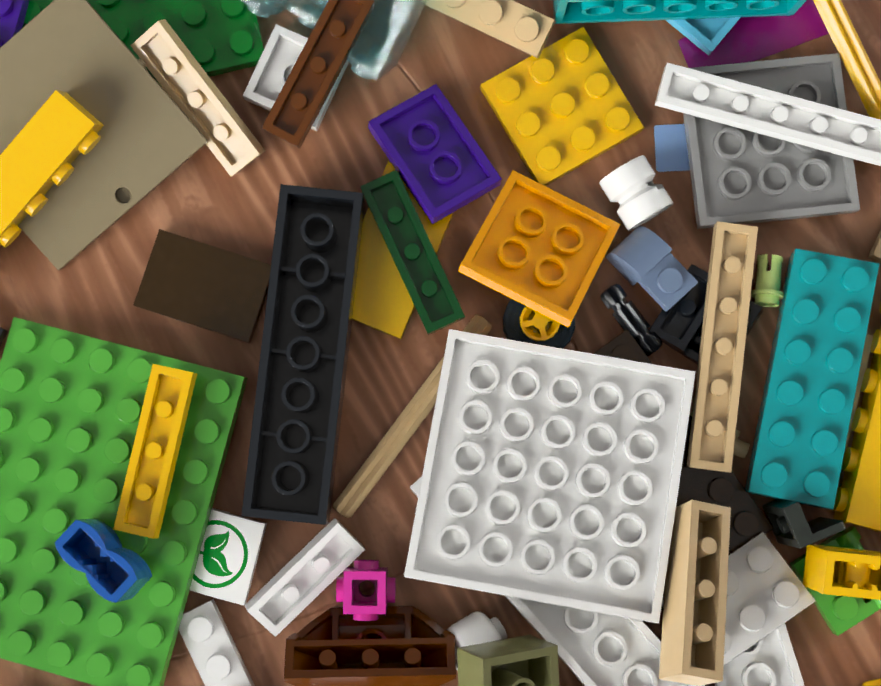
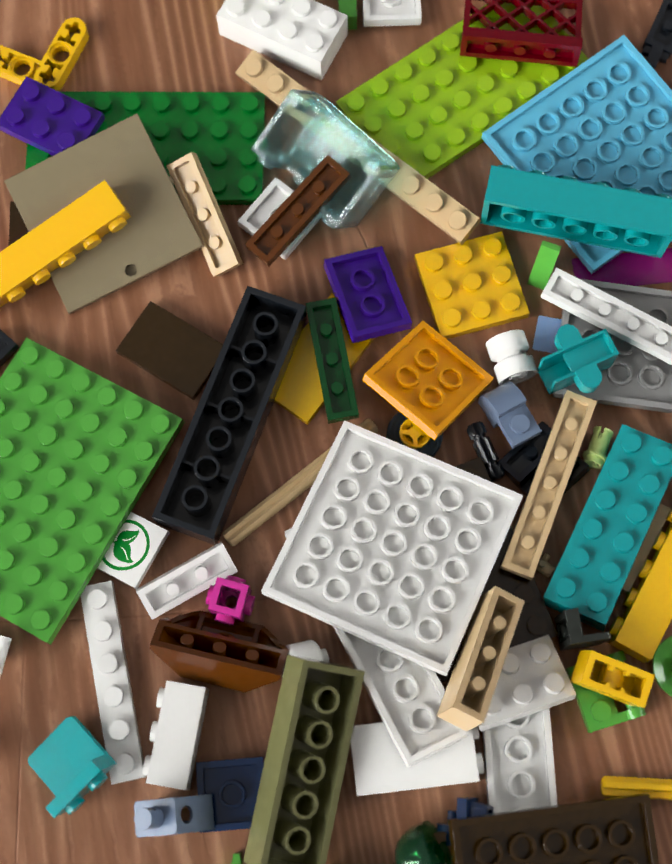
camera: 20 degrees right, 10 degrees down
(97, 551) = (41, 520): blue brick -> none
(155, 451) = (101, 454): yellow plate -> none
(649, 61) = (544, 264): none -> bright green piece
(723, 180) = (577, 360): none -> teal piece

